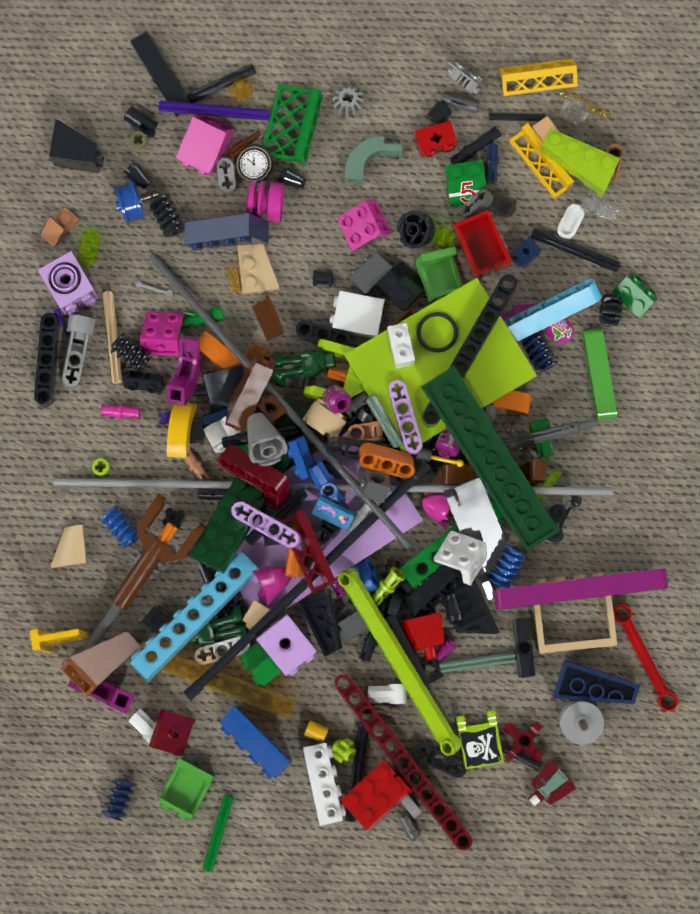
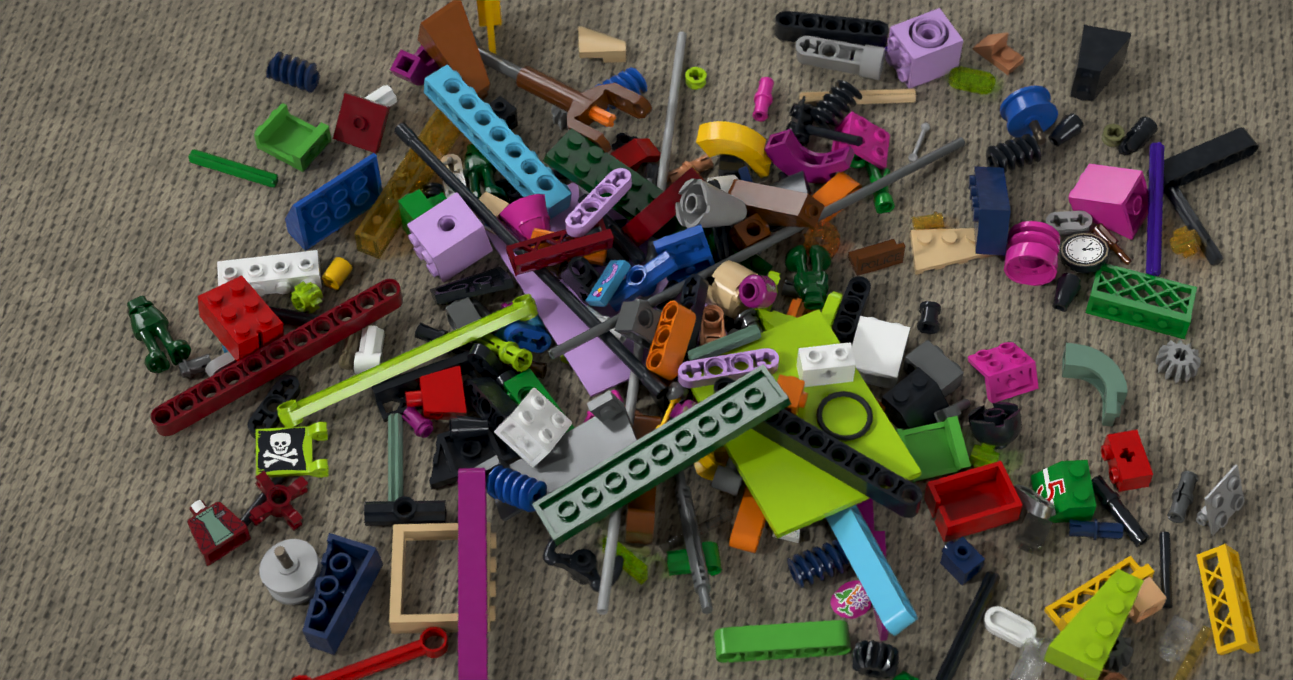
camera: 90 degrees right, 25 degrees down
(165, 351) = (833, 135): none -> black bar
(188, 509) = (637, 152): none -> red slope
(234, 666) = (432, 189): none -> black bush
(373, 873) = (151, 322): none -> dark green piece
(408, 260) = (953, 410): none -> dark grey bar
(428, 370) = (795, 391): none -> orange brick
(439, 113) = (1165, 470): black brick -> none

